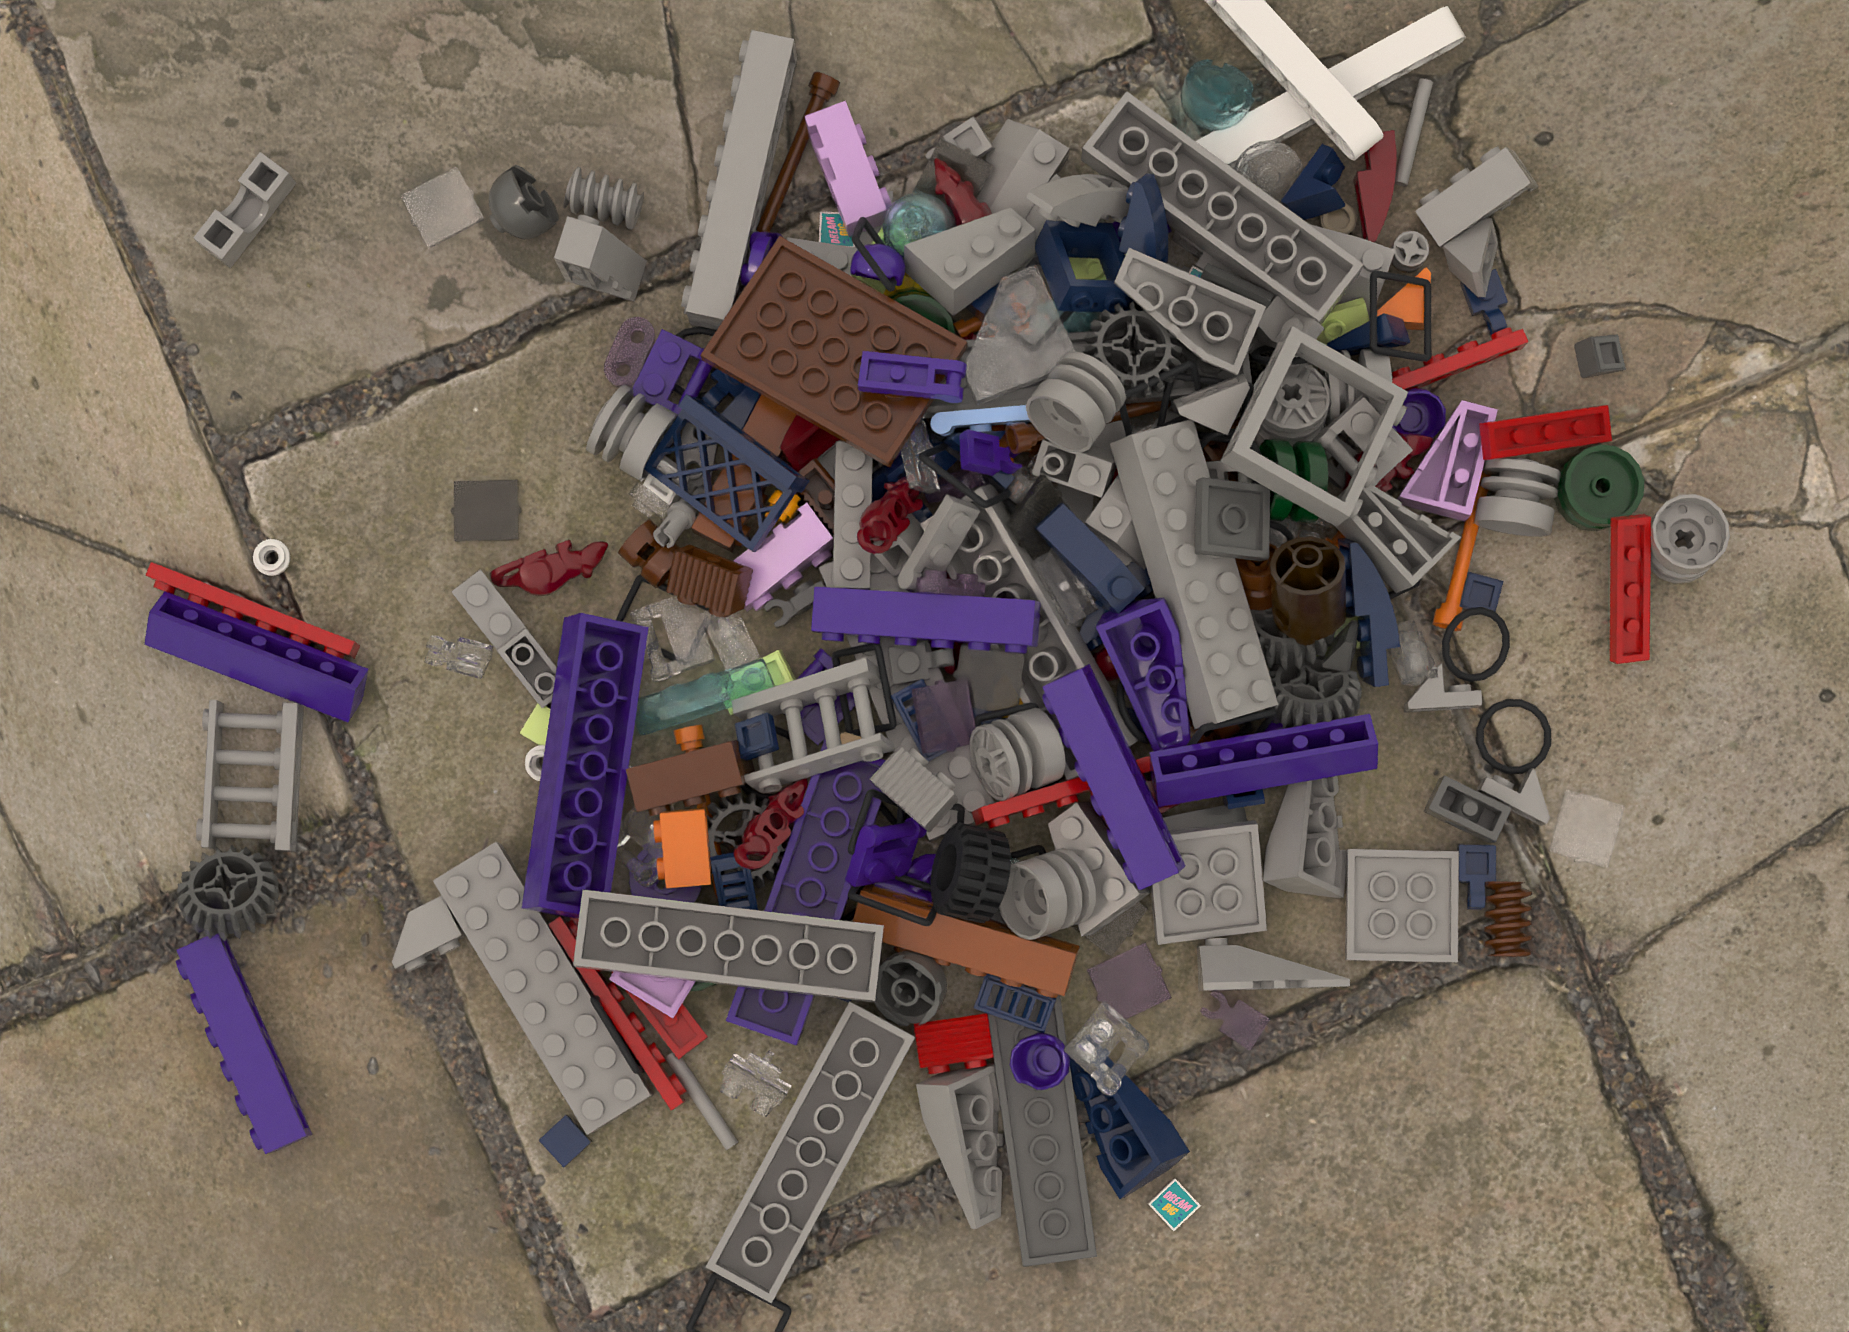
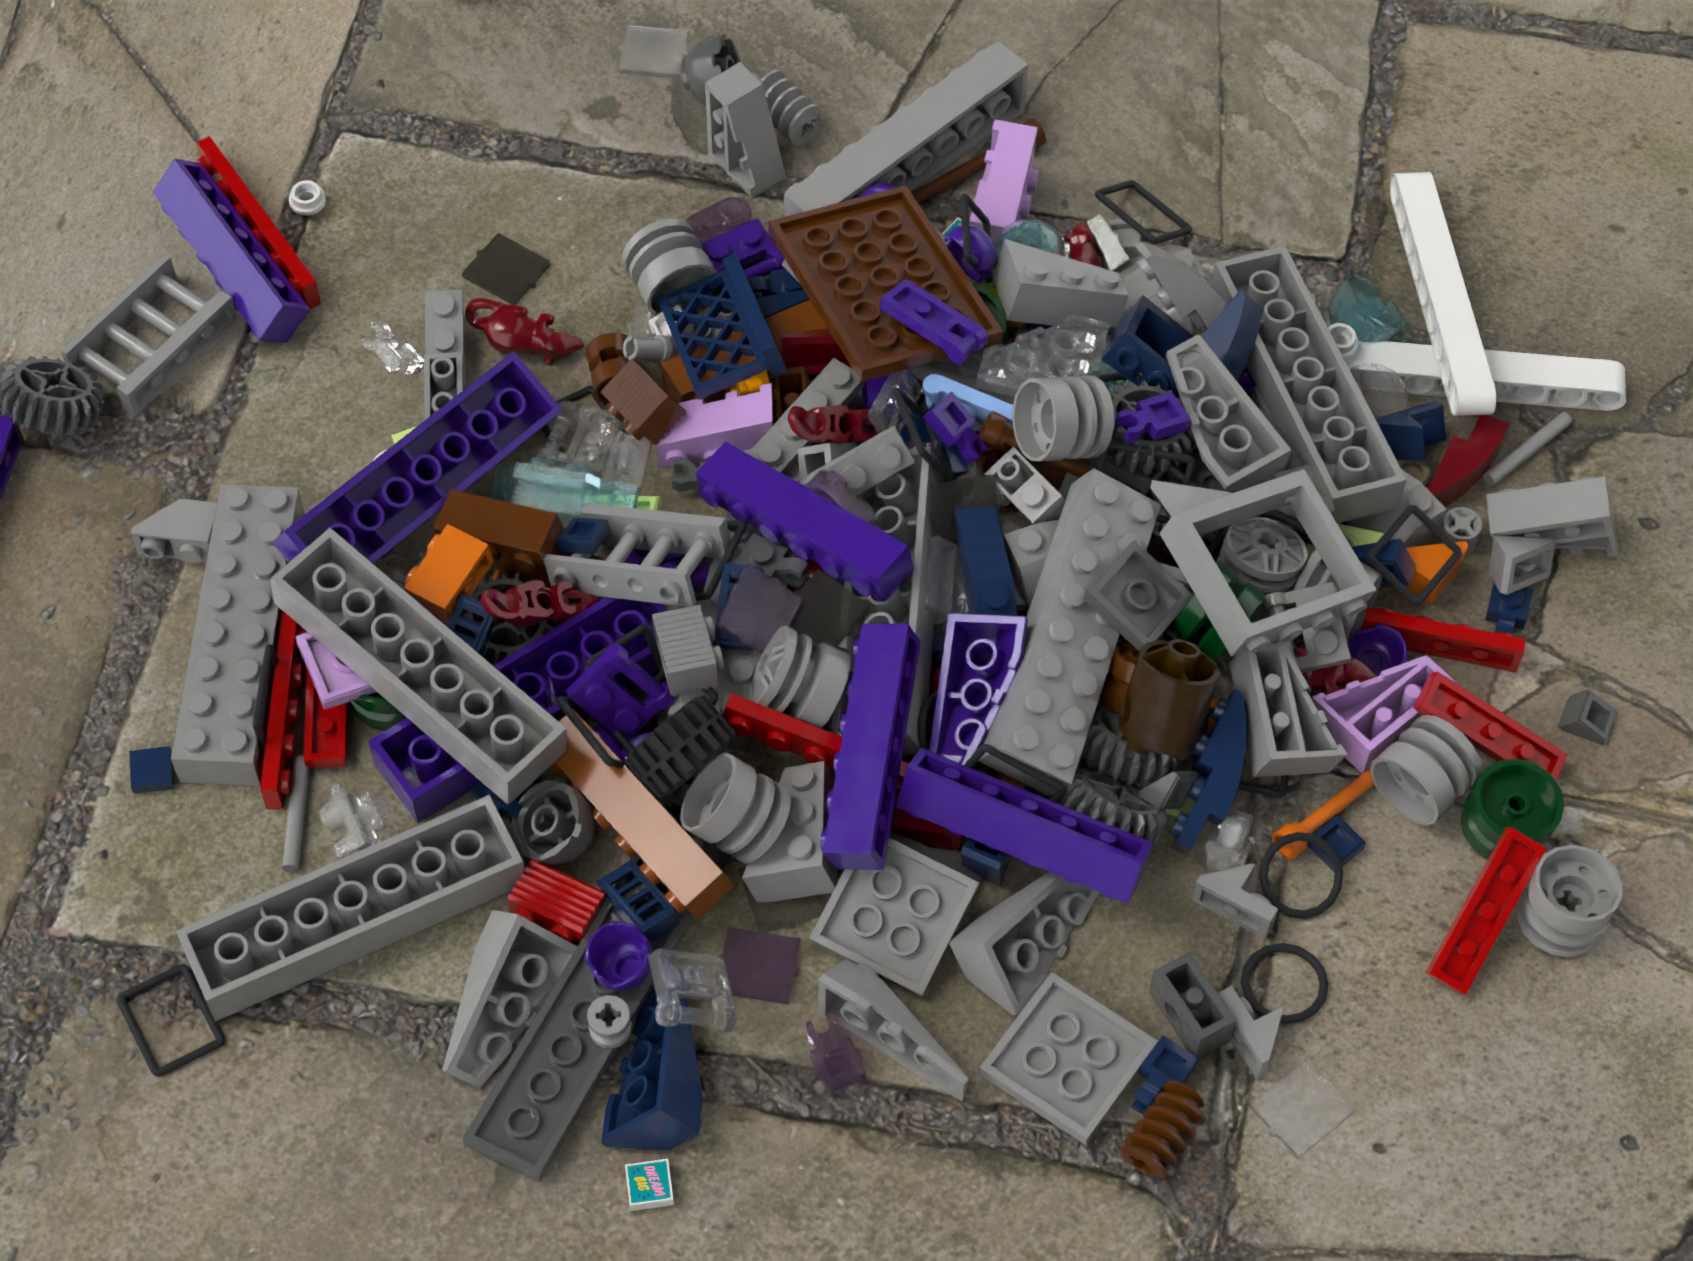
camera: 30 degrees right, 25 degrees down
(963, 126) = (1100, 195): none -> black piece
(1062, 1109) = (611, 1032): none -> light grey wheel
(1147, 349) = (1156, 415): none -> dark purple plate
(1222, 134) = (1347, 337): none -> white plate

